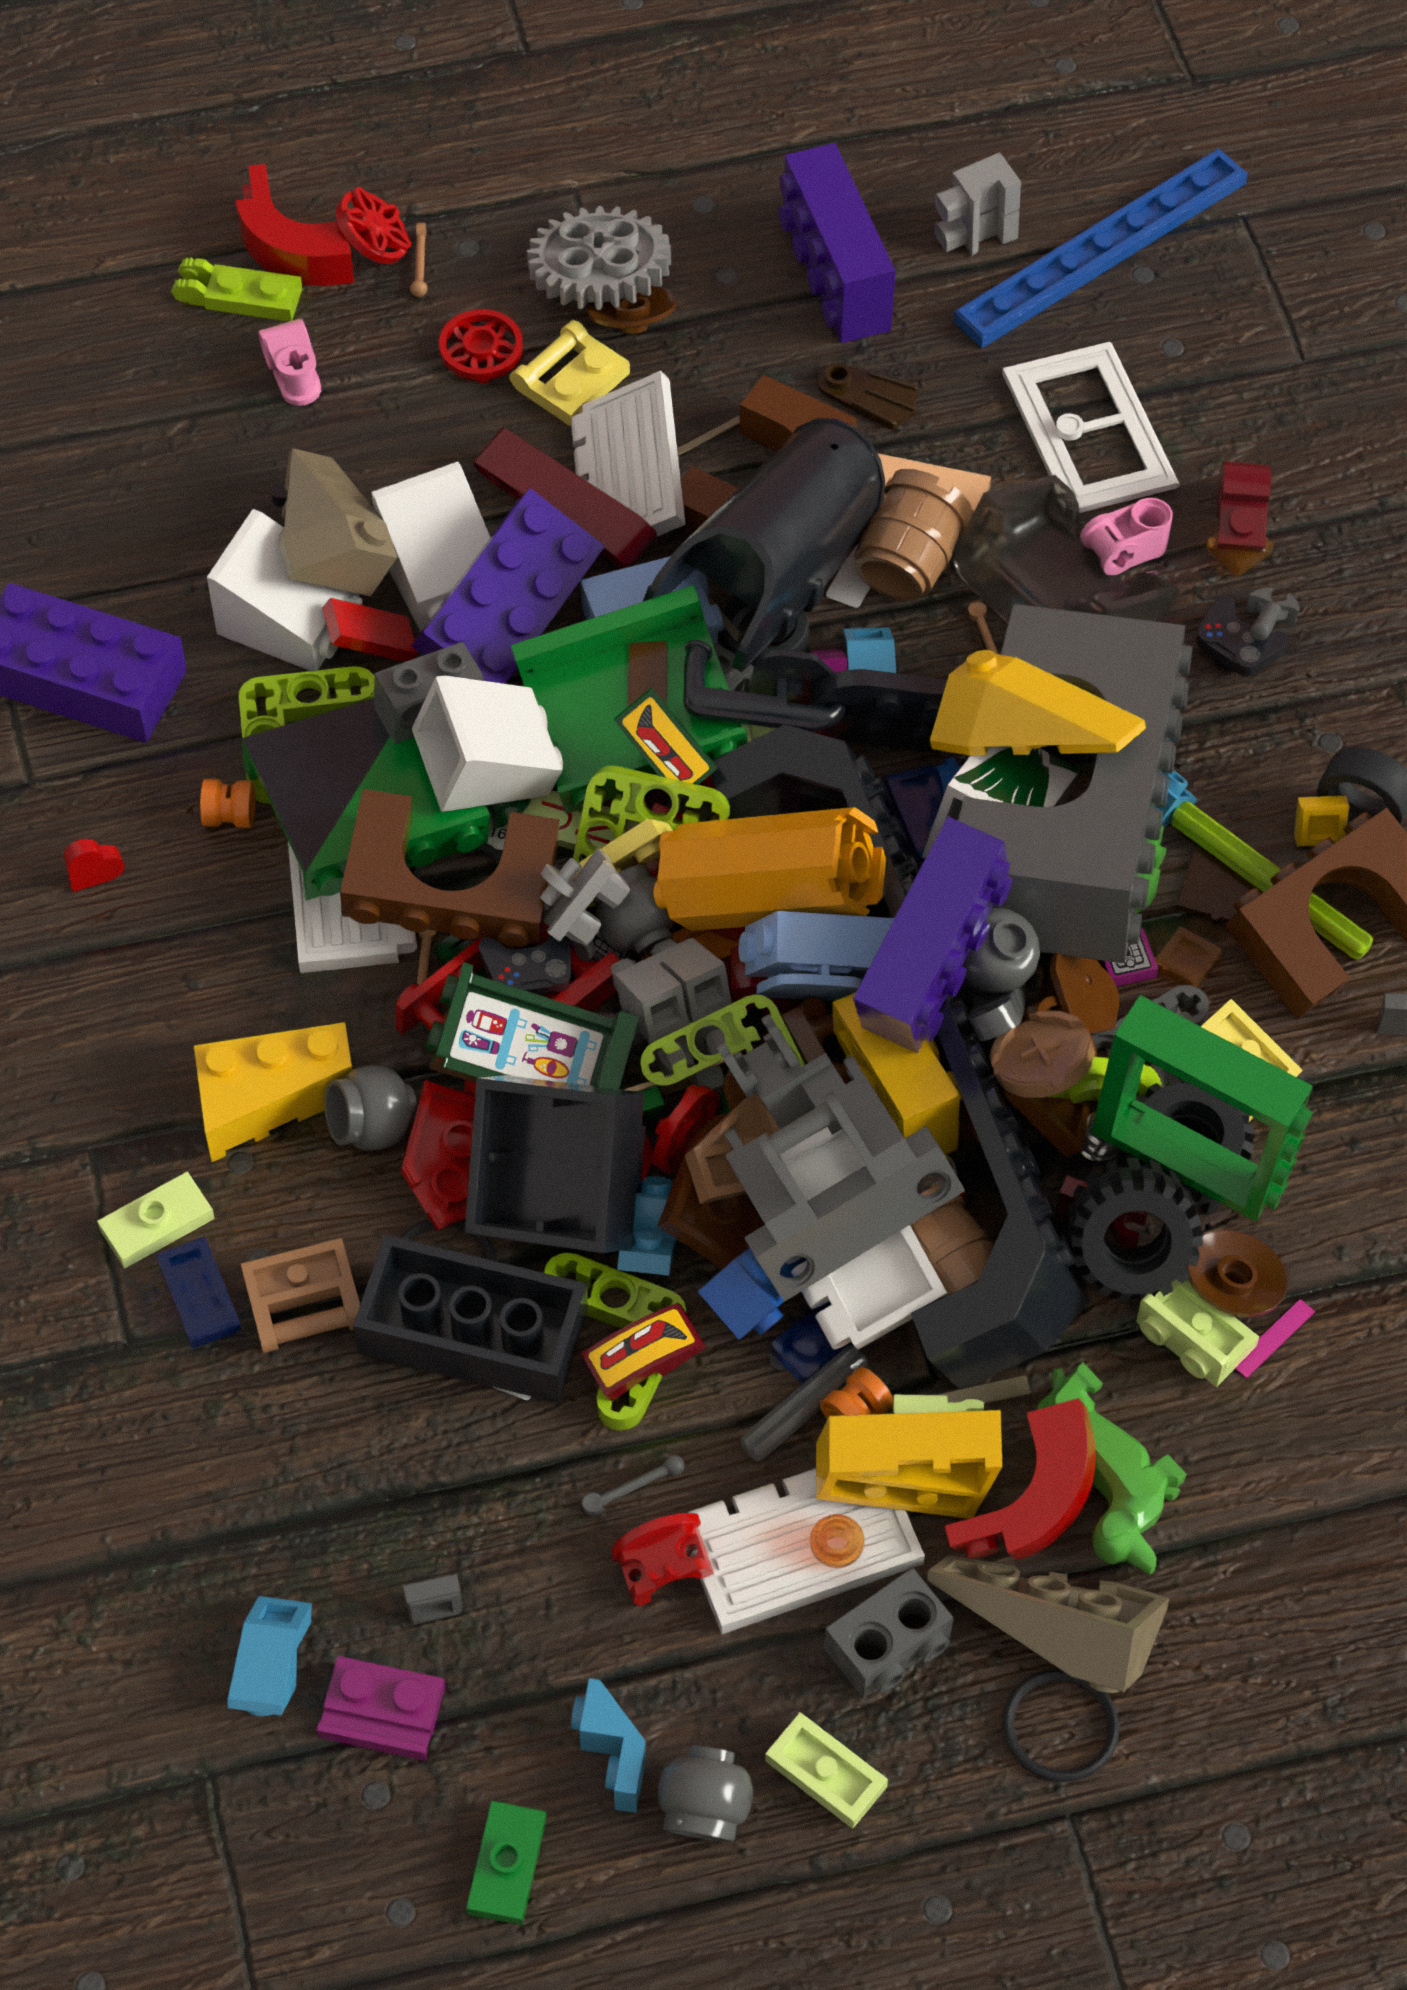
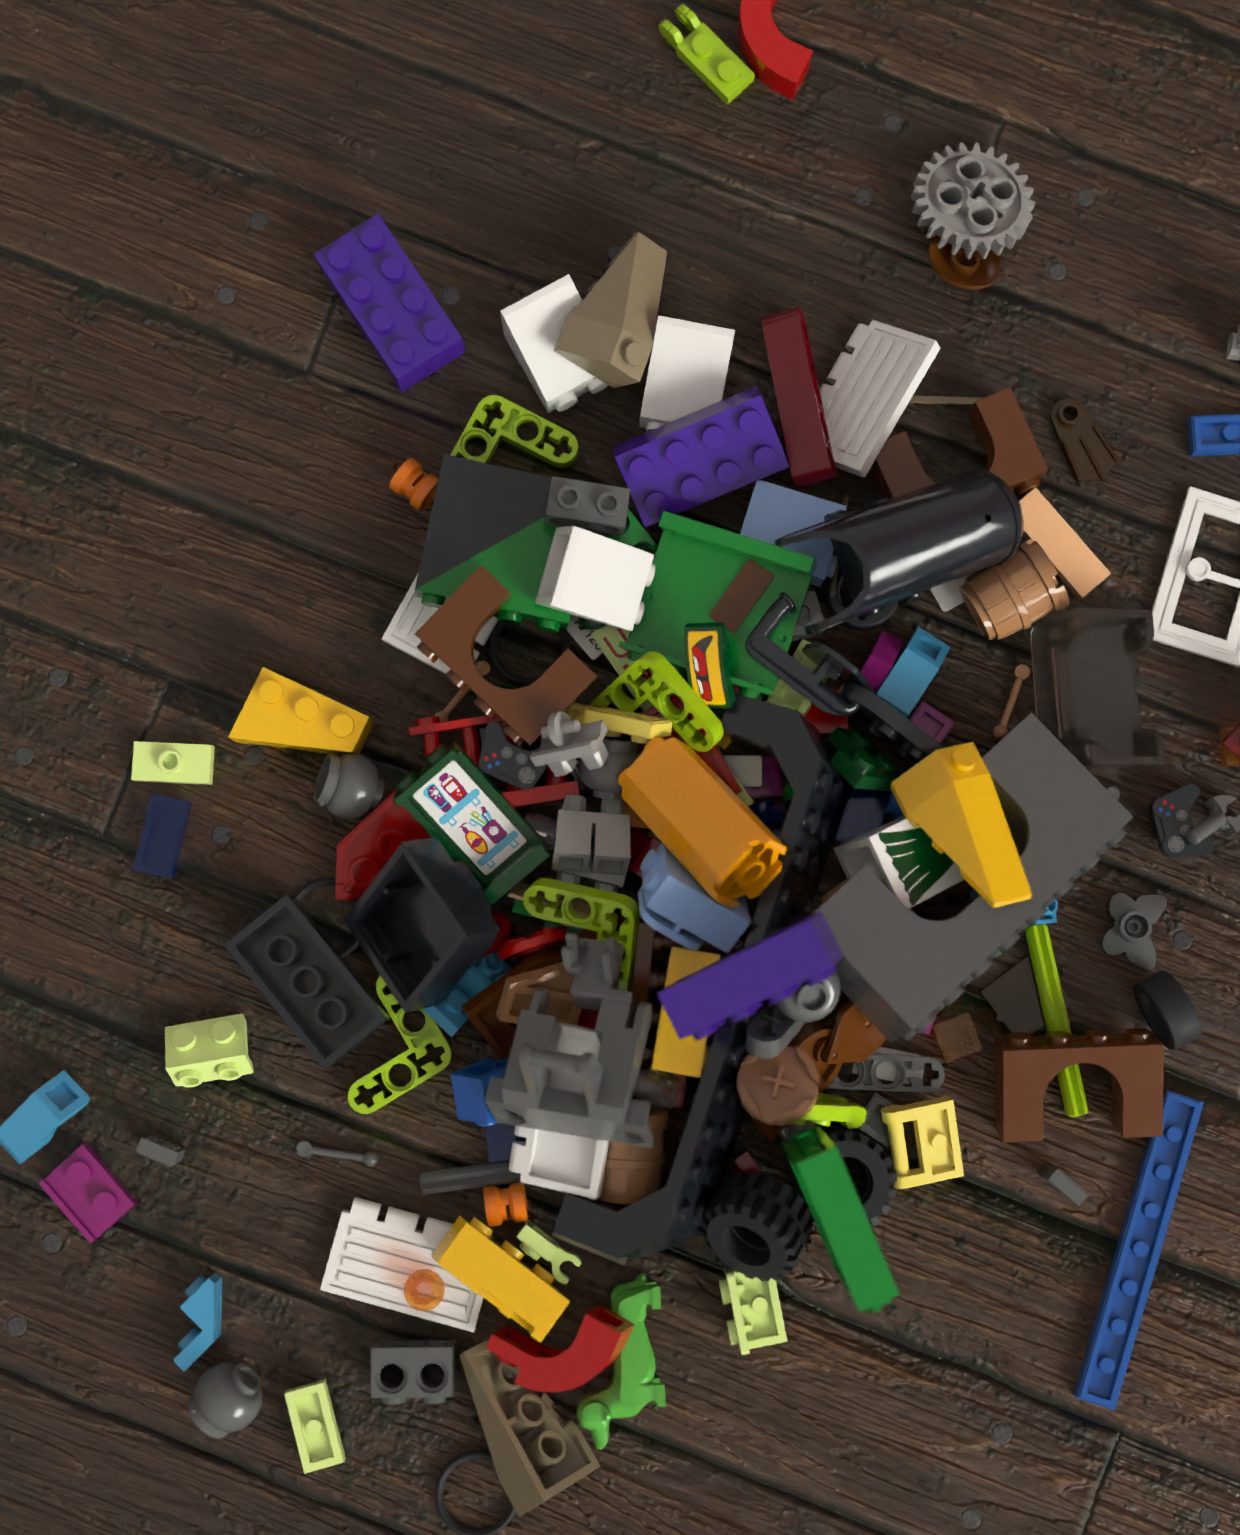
camera: 30 degrees right, 25 degrees up
(91, 864) = (299, 470): red tile -> none
(291, 361) = (700, 142): bright pink piece -> none
(298, 1280) = (228, 871): medium nougat plate -> none
(369, 630) = (596, 413): red tile -> none
(372, 226) = (831, 66): red wheel -> none
(411, 1470) = (207, 1050): none -> yellowish green bracket
(419, 287) = (832, 136): medium nougat hinge -> none
(480, 345) = (841, 216): red wheel -> none
(506, 1863) = (93, 1344): green plate -> none
(579, 382) = (890, 295): light yellow plate -> none
(642, 1348) = (396, 1080): slope -> none
(661, 1554) = (315, 1223): red piece -> none
(837, 243) = (1146, 306): dark purple brick -> none
(897, 752) = (861, 762): none -> dark green plate
(1131, 534) = (1161, 690): bright pink piece -> none
(1238, 1274) = (819, 1301): reddish brown dish -> none
(1274, 758) = (1133, 928): none -> dark grey animal
(1275, 1337) = (808, 1337): dark pink piece -> none
(1320, 818) = (1122, 1004): yellow tile -> none

